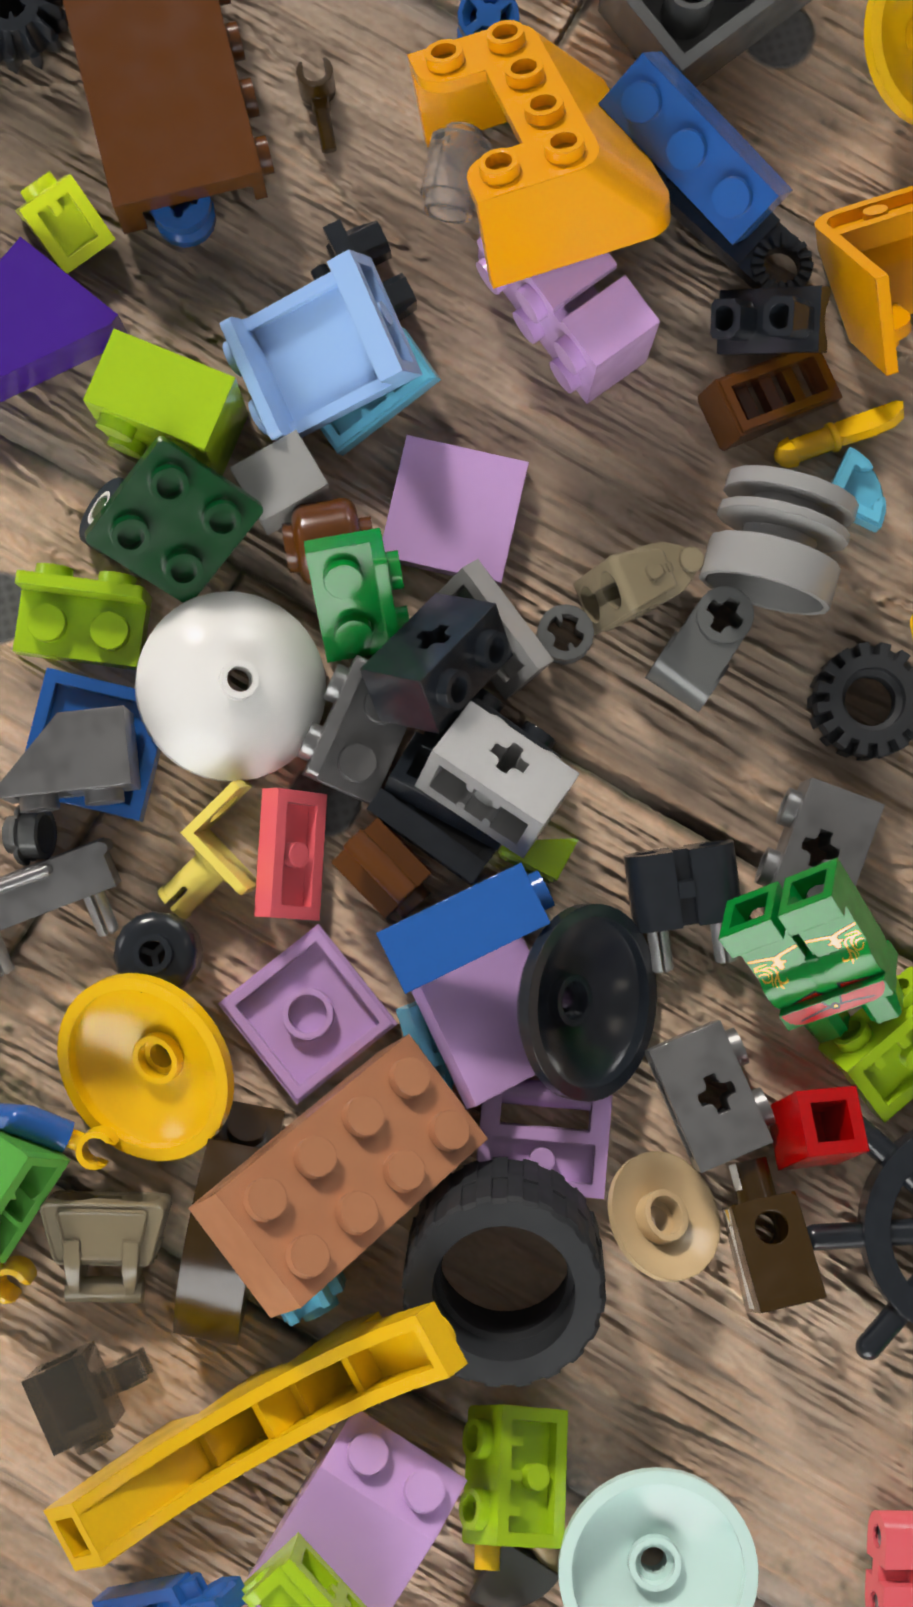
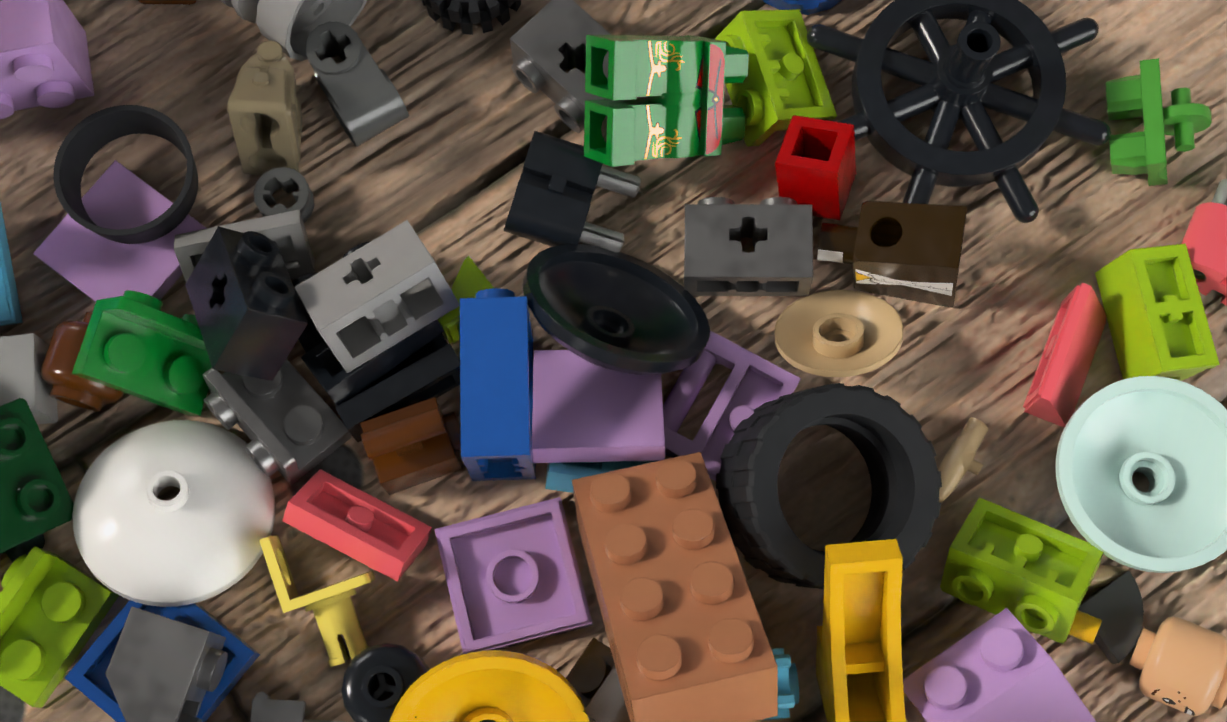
camera: 60 degrees left, 10 degrees down
(518, 428) = (96, 132): none -> black tyre
(600, 1378) = (961, 457): none -> tan helmet
(741, 1440) = (1066, 357): none -> coral slope
(818, 1513) = (1156, 313): none -> lime hinge

